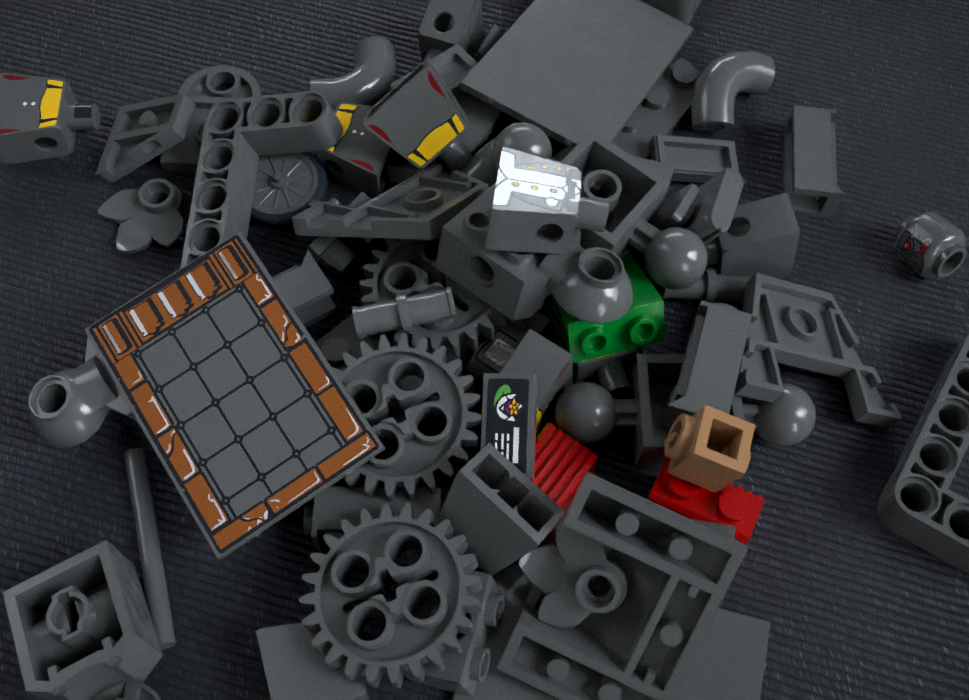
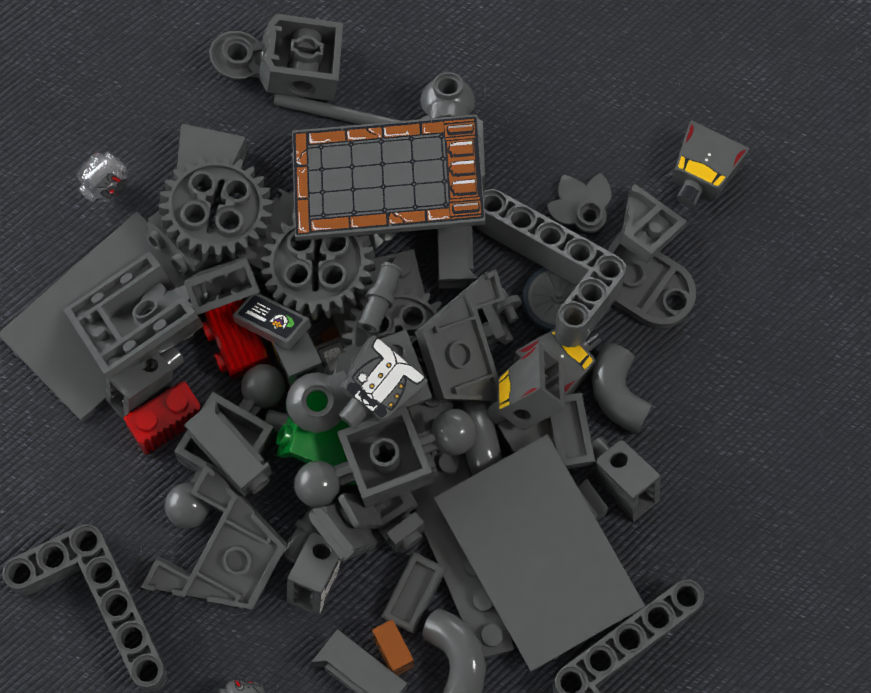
camera: 120 degrees right, 10 degrees up
(709, 448) = (176, 407): medium nougat brick -> none
(766, 143) = (392, 648): none -> dark orange piece

